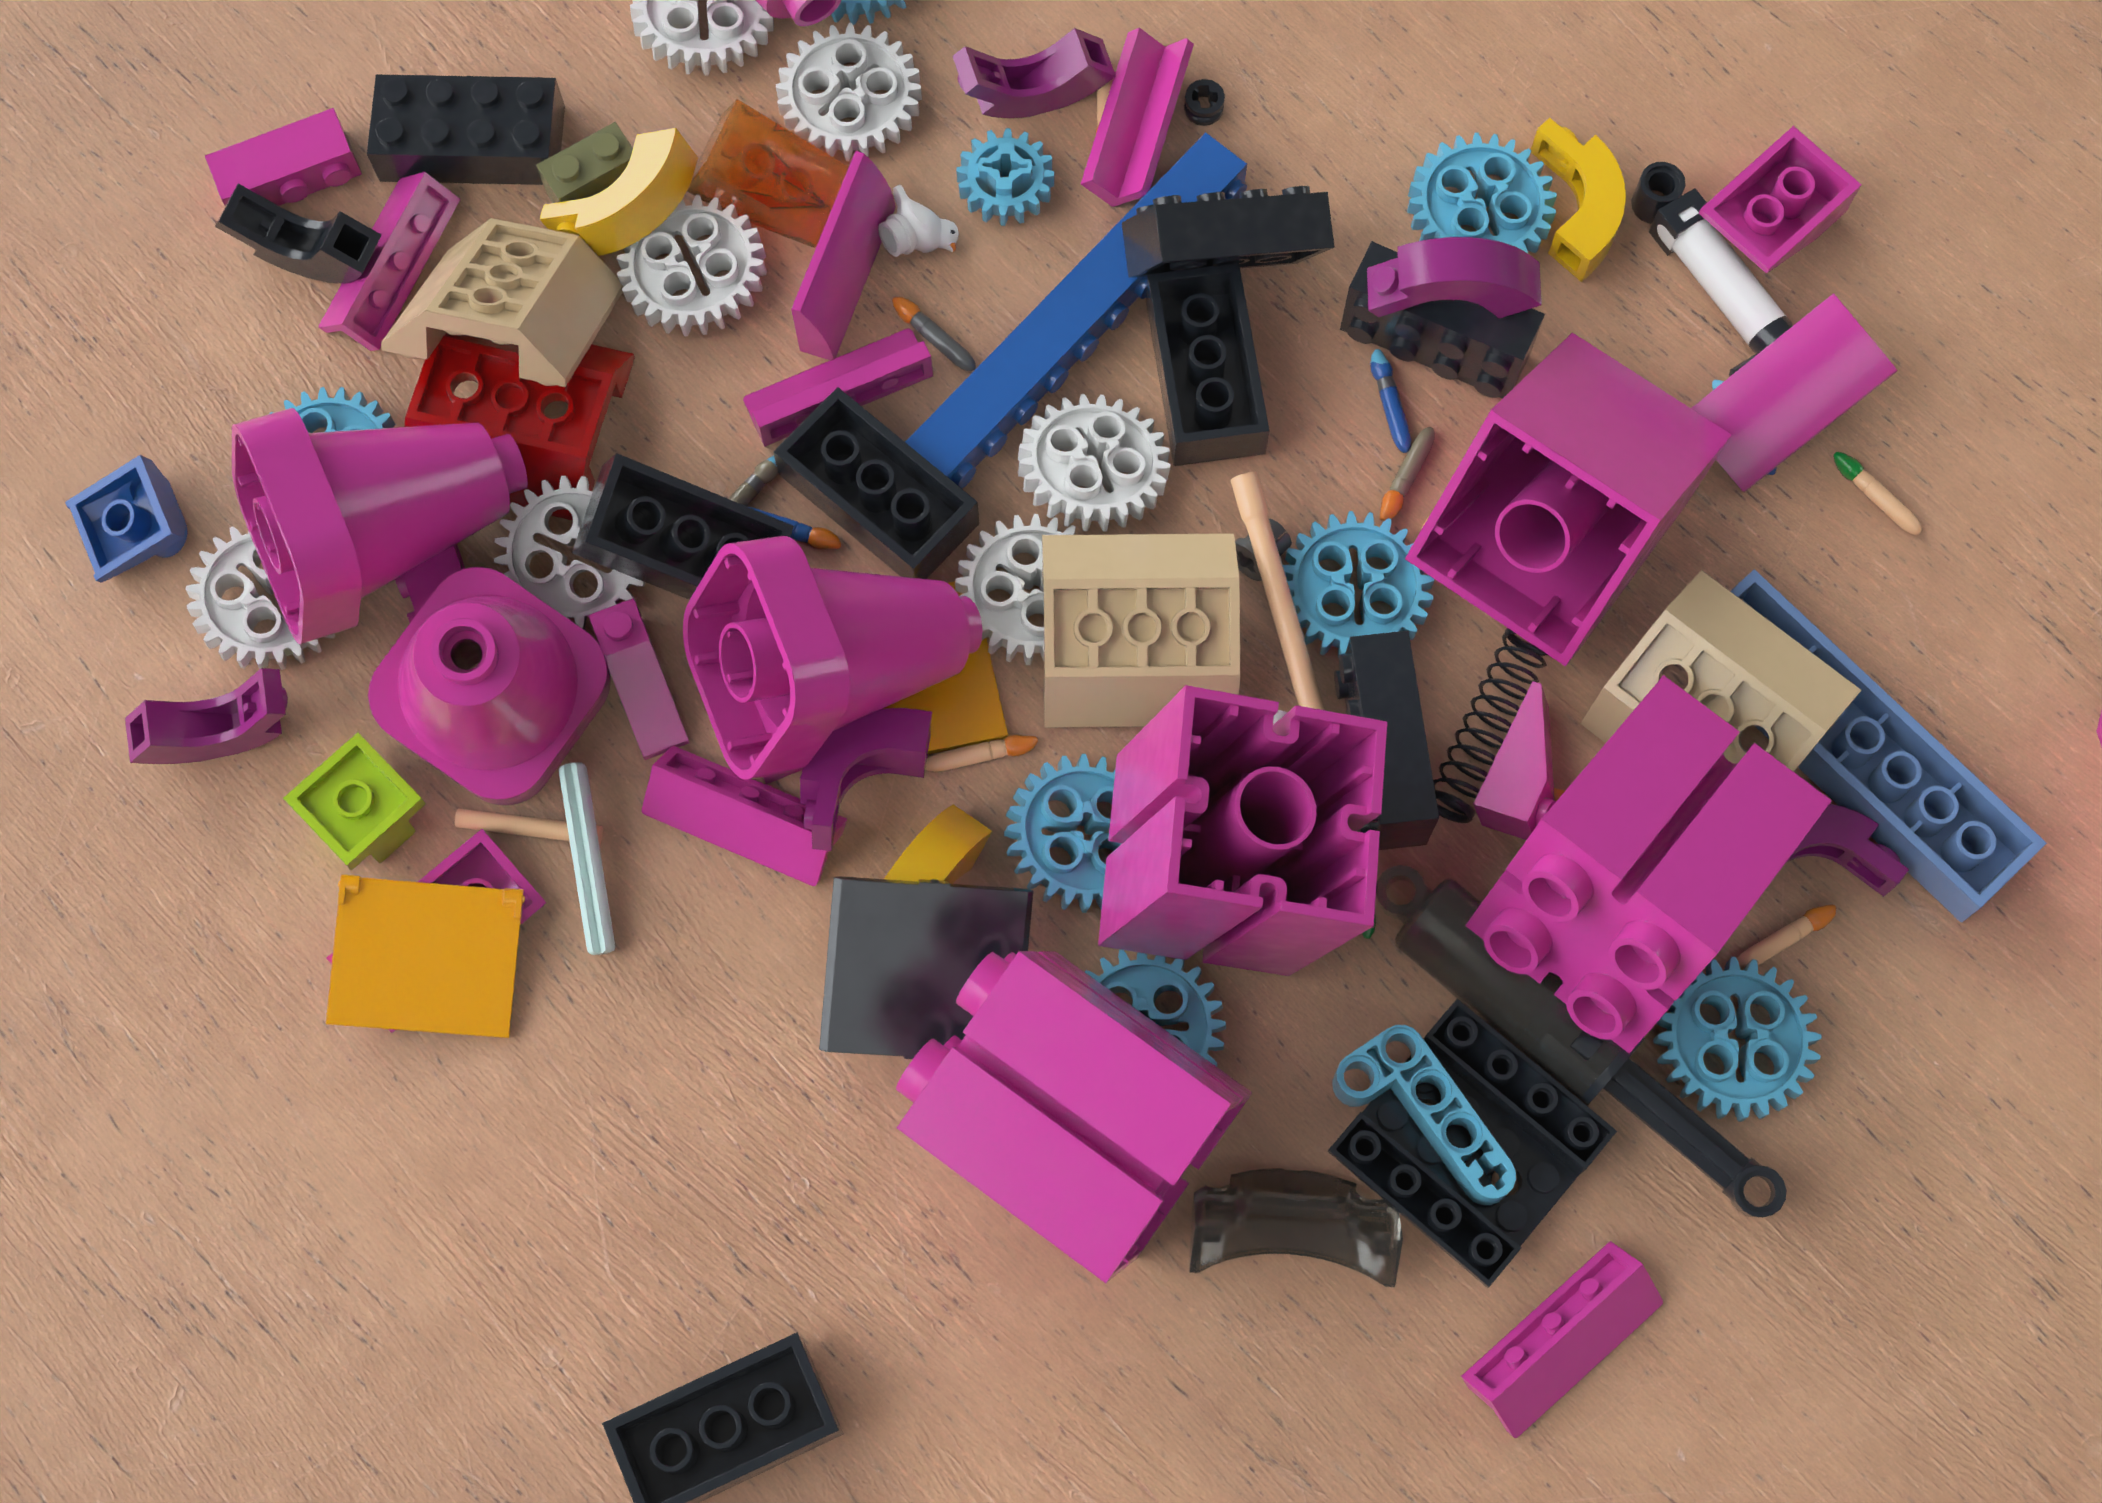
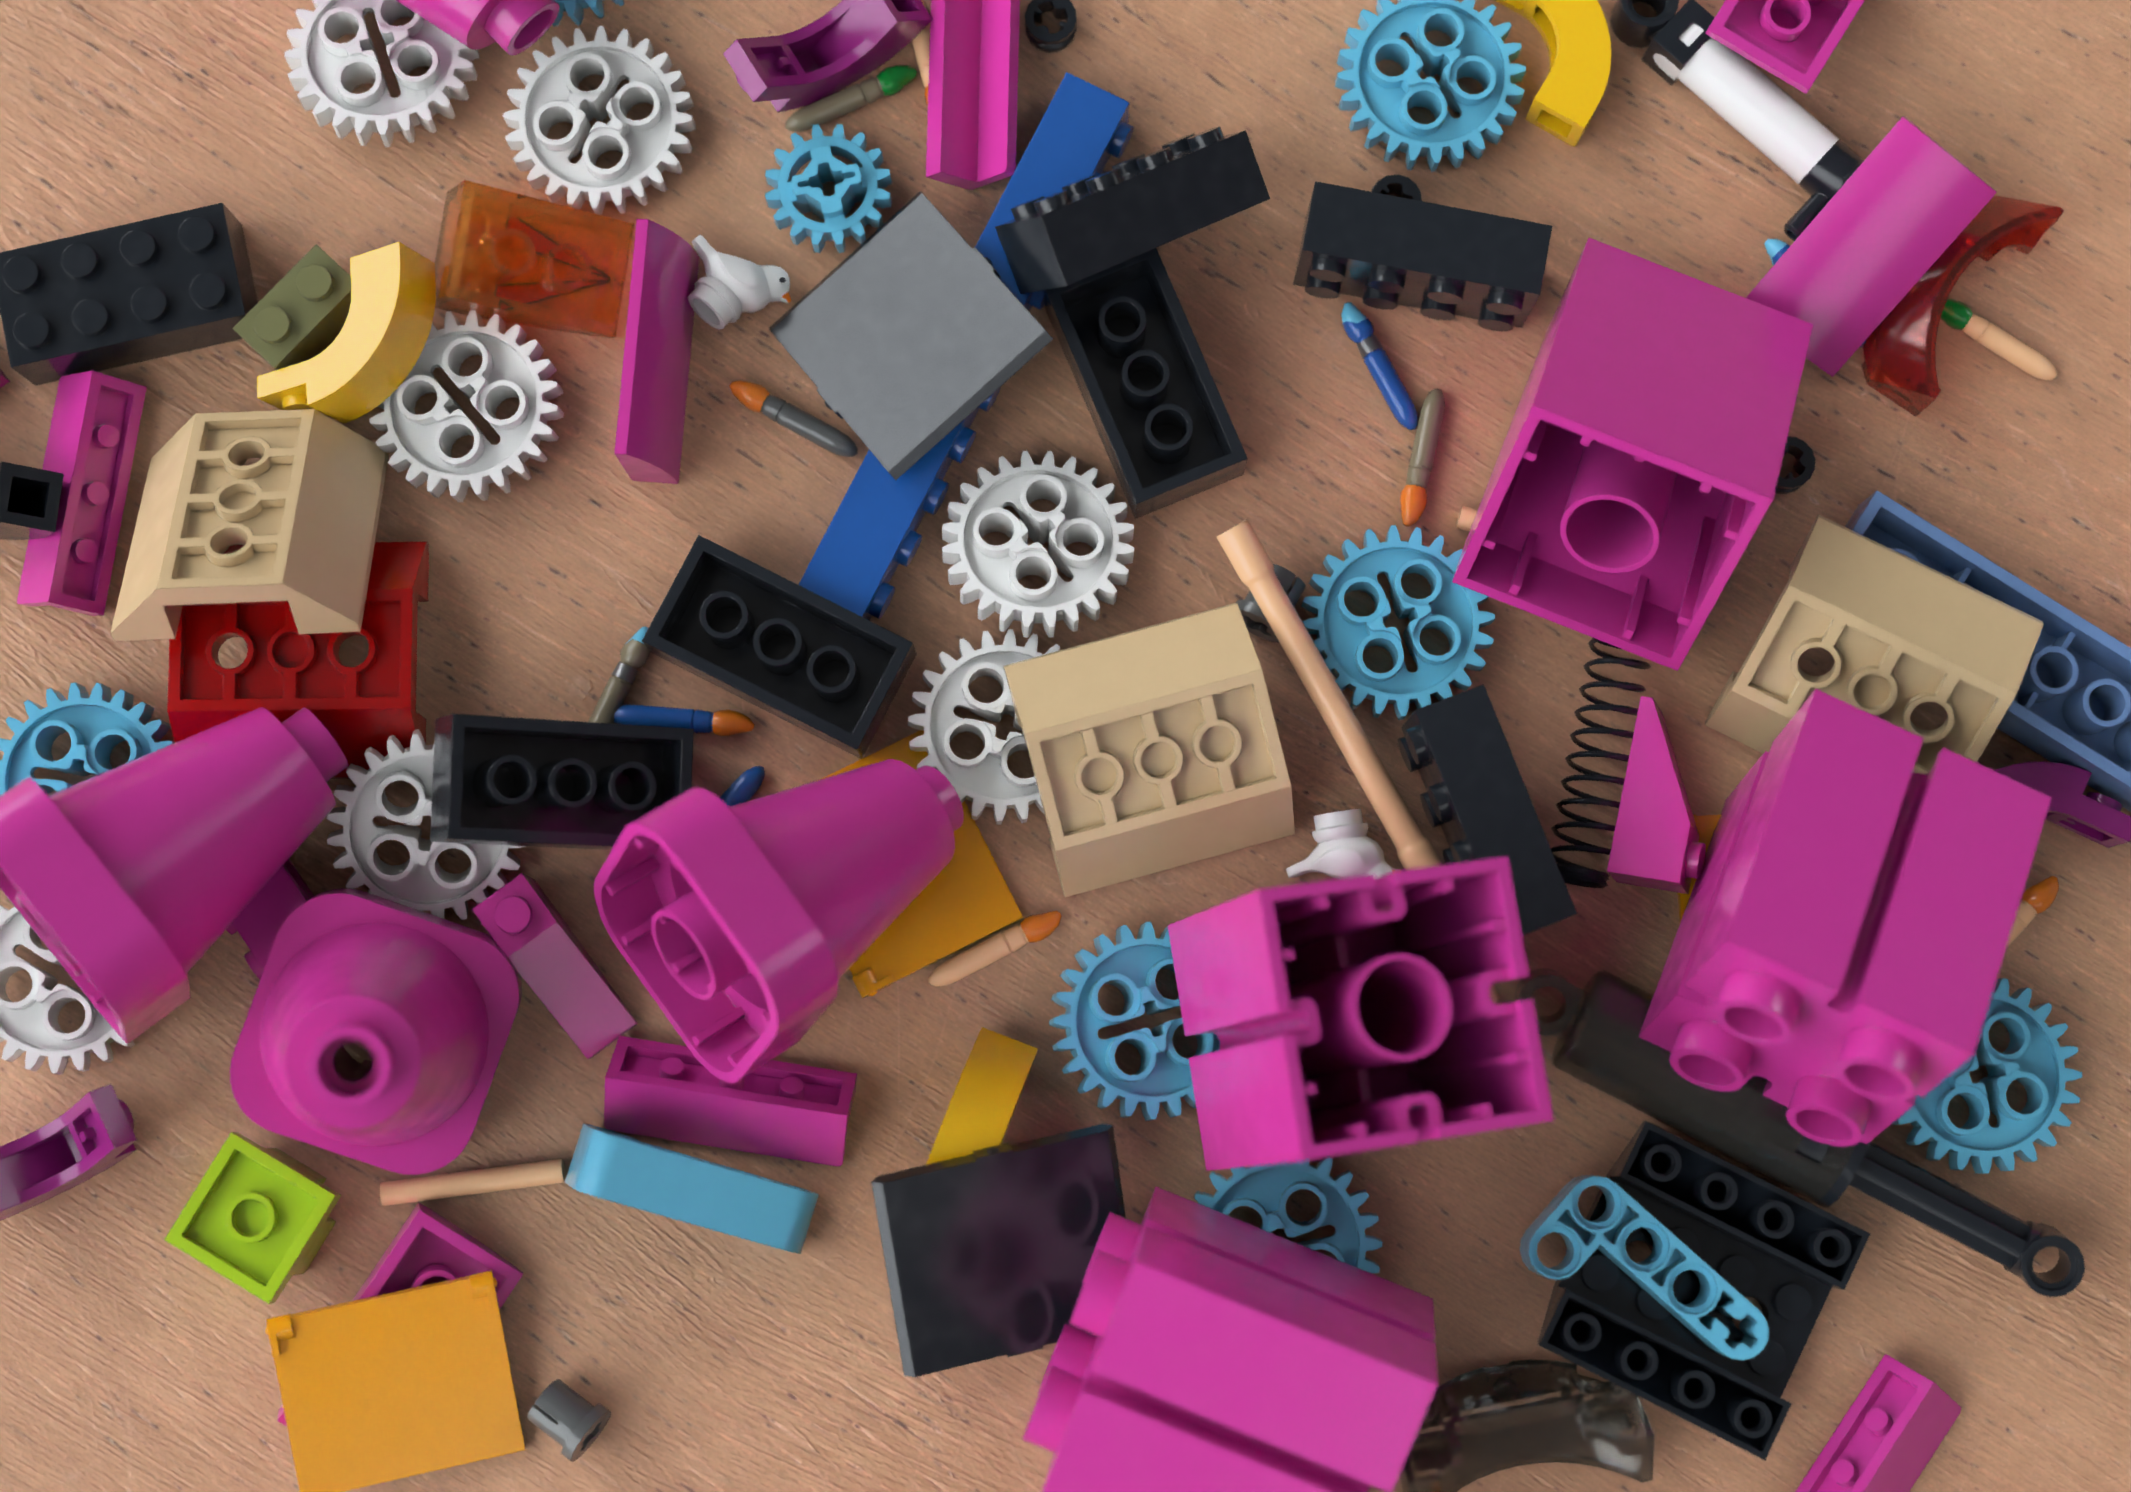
camera: 15 degrees left, 10 degrees up
(549, 1020) = (568, 1419): none -> dark grey bush
(586, 858) = (556, 1209): light aqua axle -> none
(695, 866) = (690, 1189): none -> medium azure beam
(861, 374) = (704, 503): dark pink panel -> none
(876, 744) = (887, 975): magenta arch -> none
(1037, 287) = (909, 335): none -> piece
(1070, 116) = (886, 83): none -> dark tan piece
(1456, 269) = (1435, 209): magenta arch -> none
(1690, 531) = (1803, 466): none -> black bush
(1800, 479) = (1902, 348): none -> clear red windscreen

